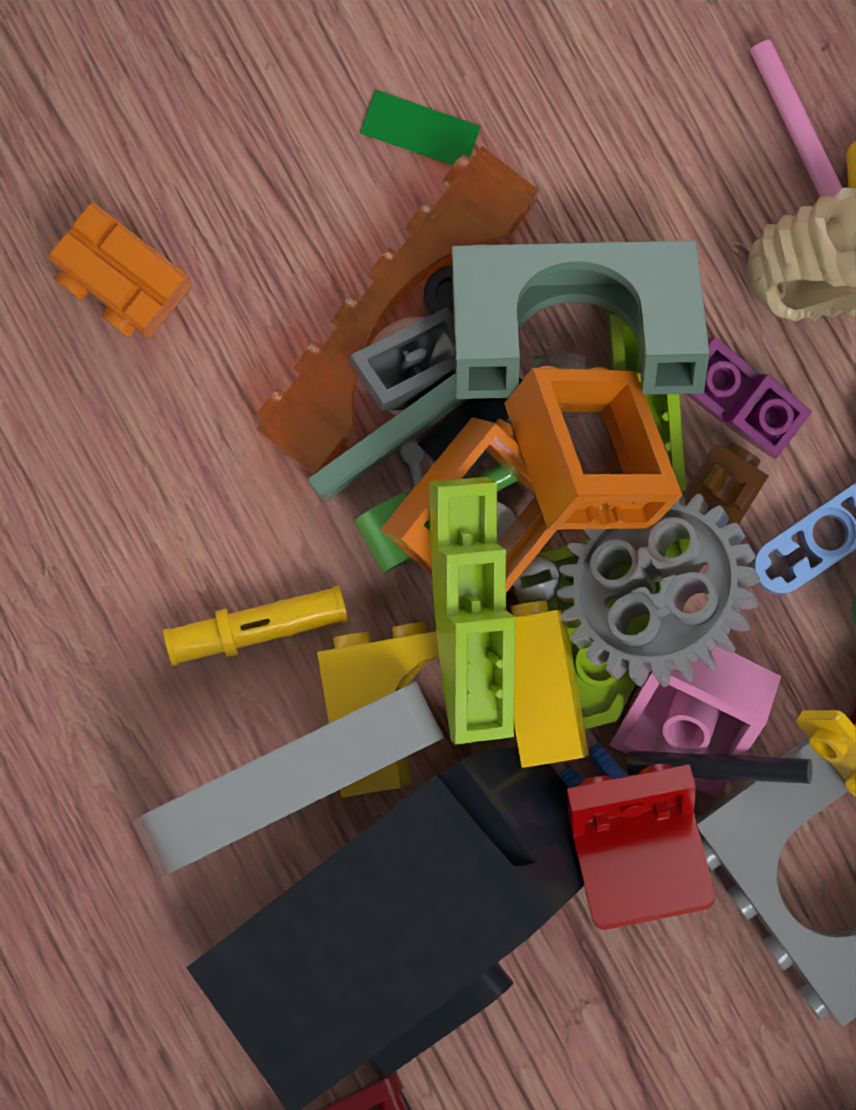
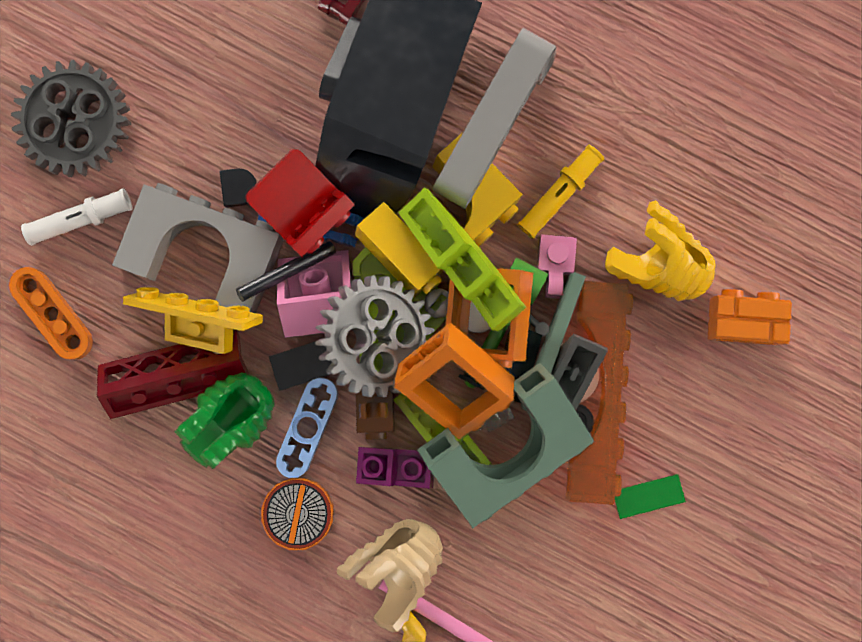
camera: 155 degrees right, 0 degrees up
(177, 417) = (673, 266): none -> yellow hair
(324, 536) = (556, 258): none -> bright pink plate
(707, 940) = (235, 185): none -> black tile
(785, 627) = (299, 365): none -> black tile

